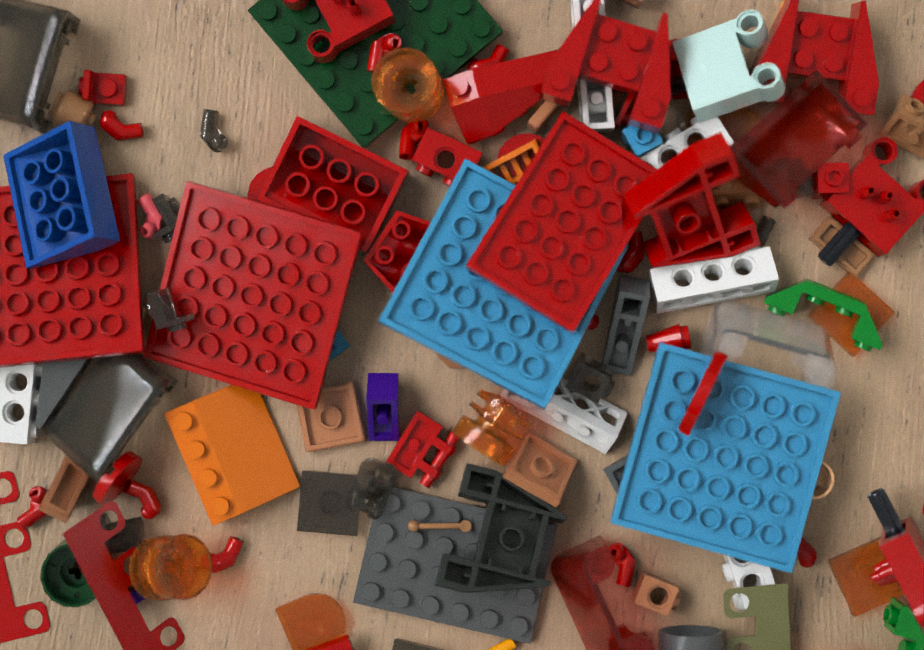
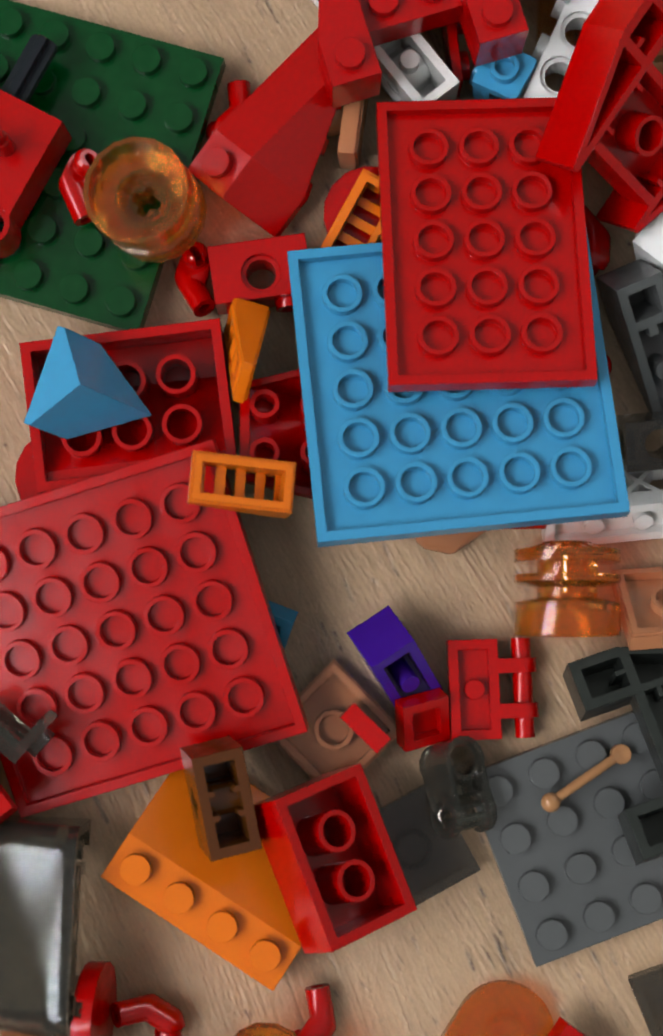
camera: 40 degrees left, 5 degrees down
(248, 414) = (221, 798): none -> reddish brown brick
(284, 481) = (333, 859): none -> red brick
(312, 162) = (81, 390): none -> dark azure slope
(344, 426) = (365, 727): none -> red tile
(377, 442) = (422, 719): none -> red tile
(379, 282) = (283, 490): none -> orange slope
(413, 188) = (243, 343): none -> orange slope

